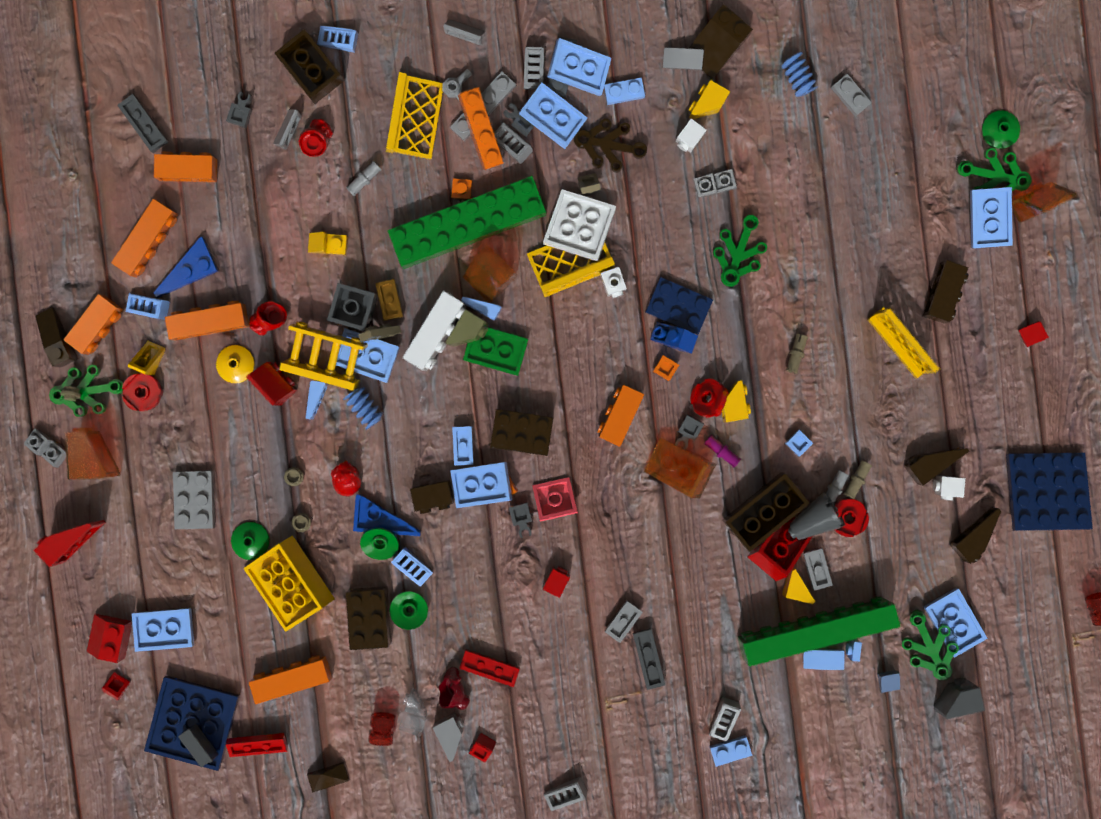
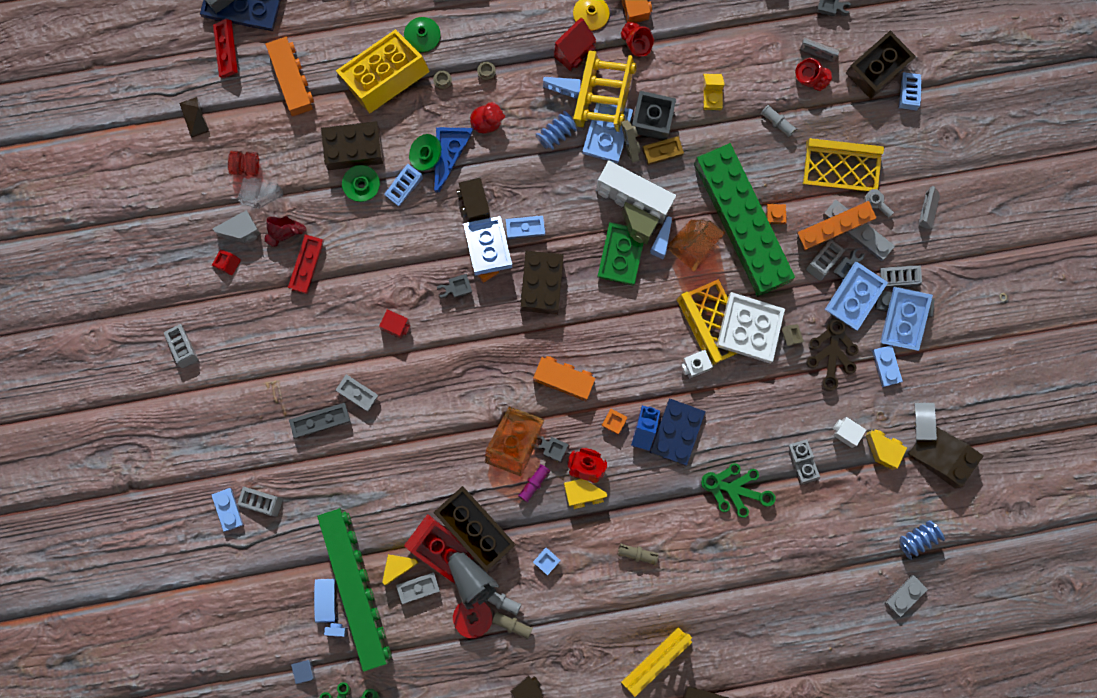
camera: 80 degrees right, 10 degrees down
(554, 499) = (477, 318): coral slope -> none

